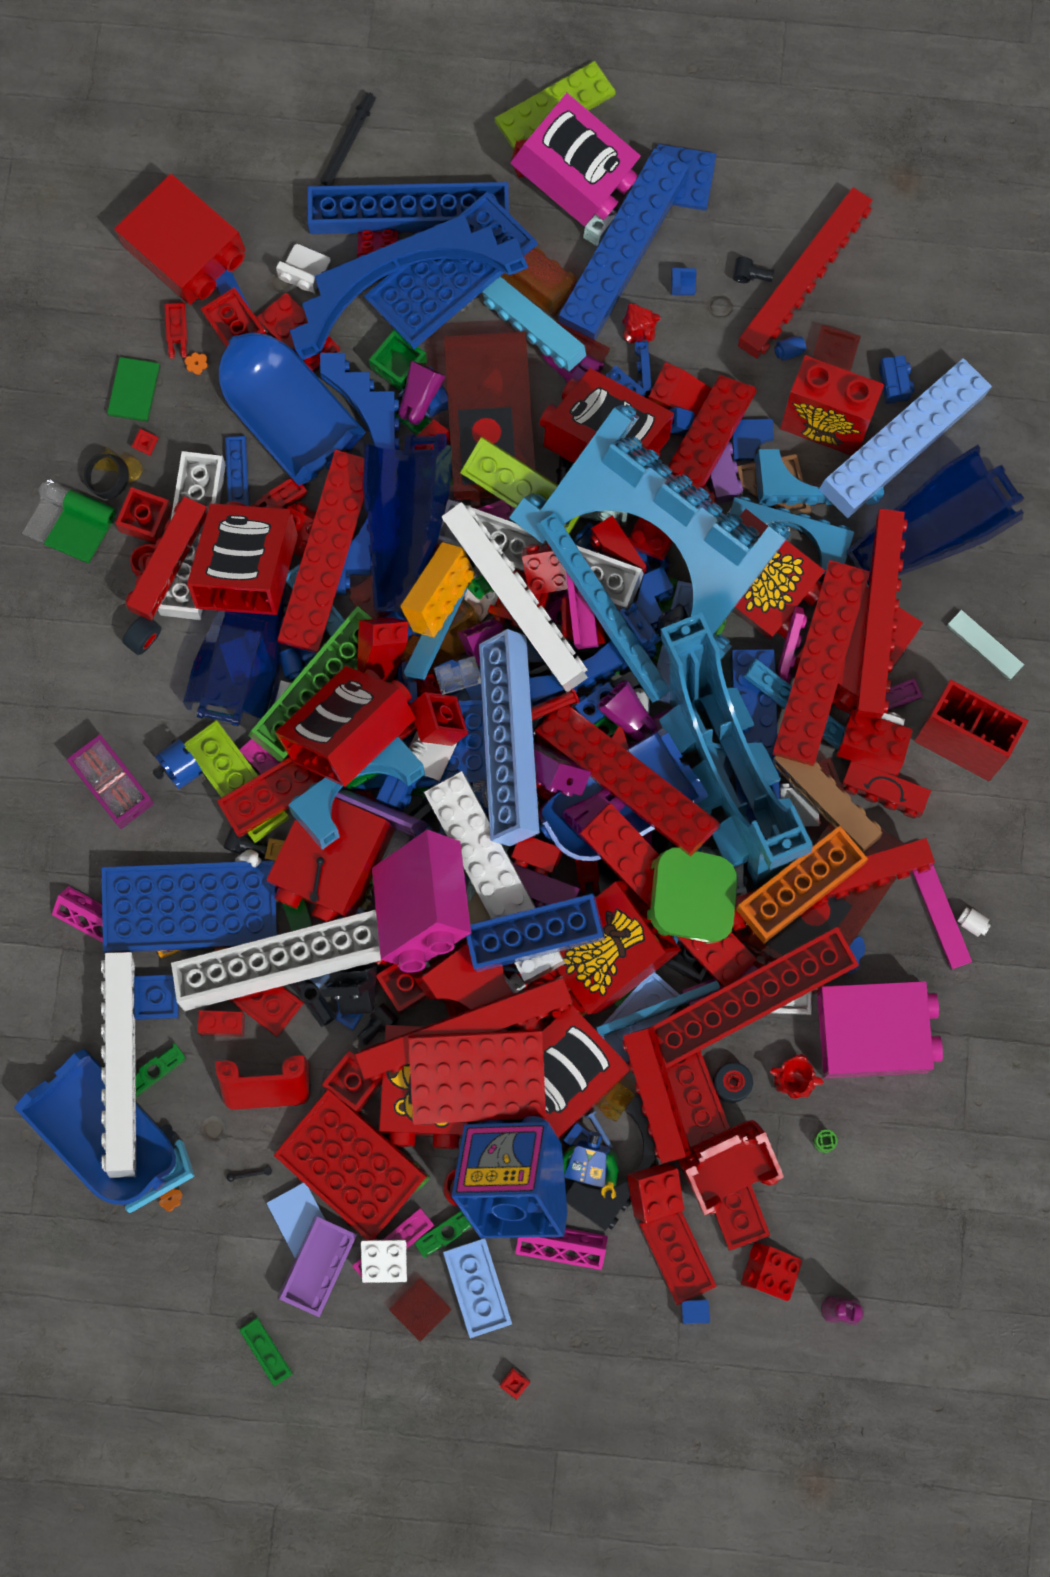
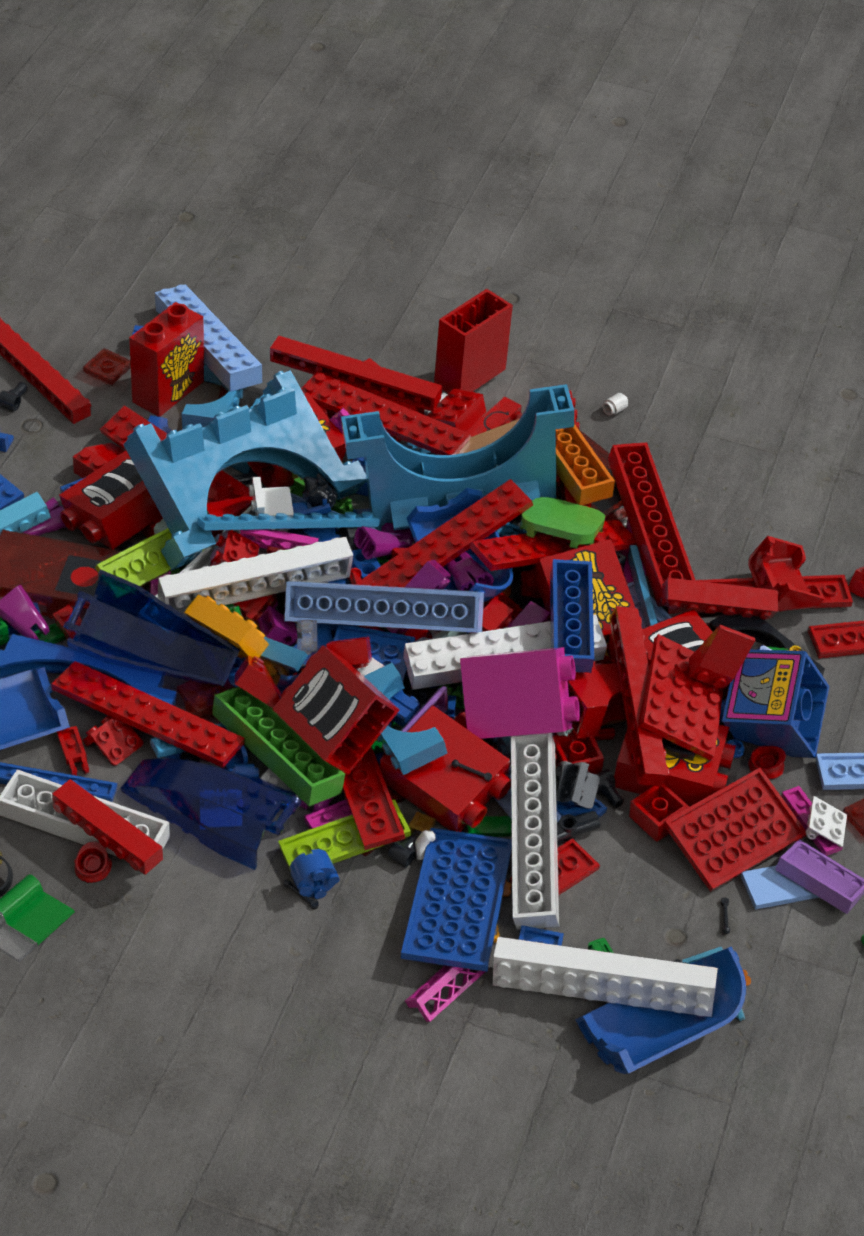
camera: 80 degrees left, 30 degrees down
(110, 781) = (311, 935): clear brick -> none
(141, 635) = (169, 880): black wheel -> none
(144, 515) = (46, 851): red brick -> none
(221, 1023) = (578, 900): red piece -> none
(243, 558) = (136, 762): red brick -> none
(265, 1091) = (644, 891): red windscreen -> none
(433, 1240) = (797, 772): green piece -> none
(517, 1102) = (720, 657): none -> red slope
(579, 1241) = (835, 690): dark pink fence -> none
(626, 579) = (270, 500): none -> white bracket
(639, 324) = (27, 467): red hair -> none
(643, 366) = (63, 475): blue hinge -> none
(655, 1192) = (799, 627): red brick -> none
(733, 1089) = (712, 566): black wheel -> none
(790, 348) = (93, 390): blue brick -> none
(796, 1077) = (718, 528): red hair -> none
(822, 1144) = (773, 525): bright green wheel -> none
(878, 1030) = (694, 471): dark pink brick -> none
(942, 918) = (620, 422): dark pink tile -> none
(949, 514) = (280, 317): clear blue windscreen -> none
(985, 645) = (393, 347): light aqua tile -> none

